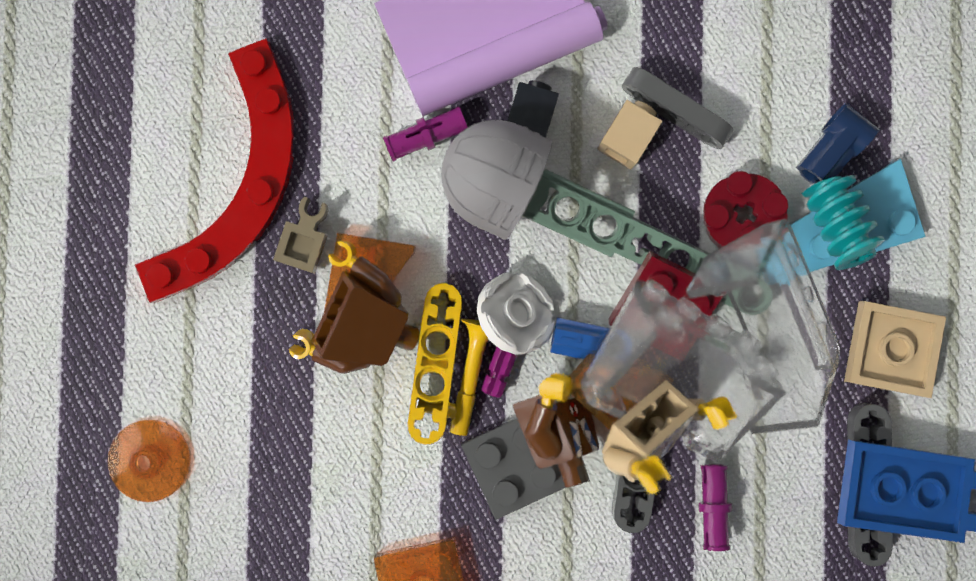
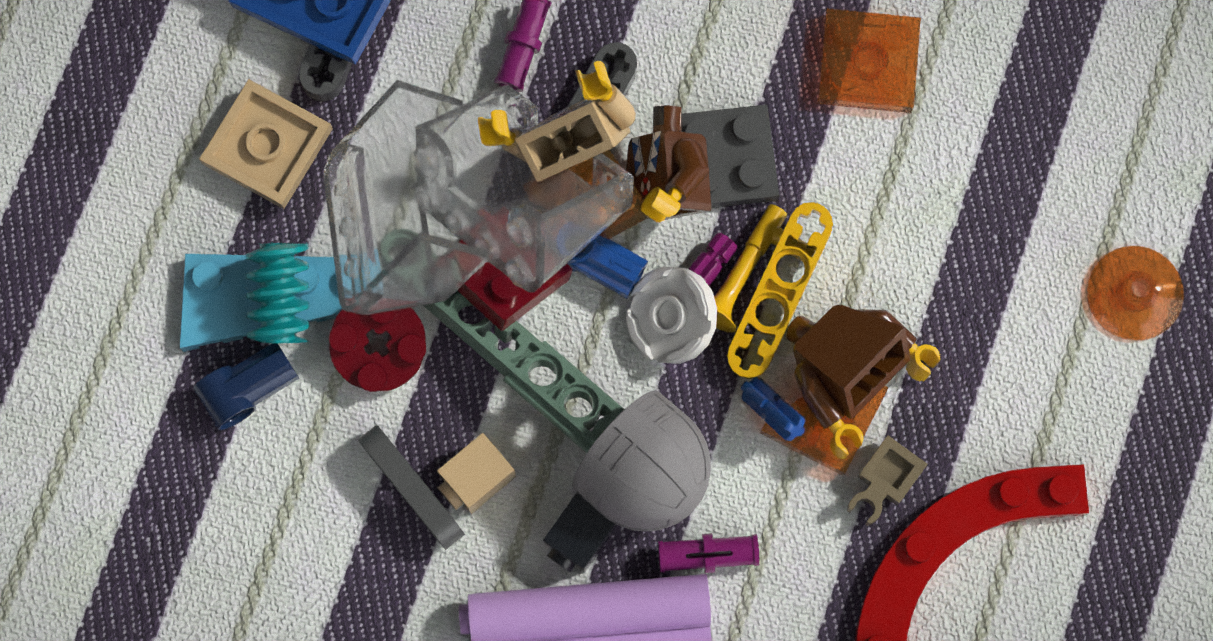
camera: 165 degrees left, 10 degrees down
(402, 259) = (773, 408): none -> blue piece

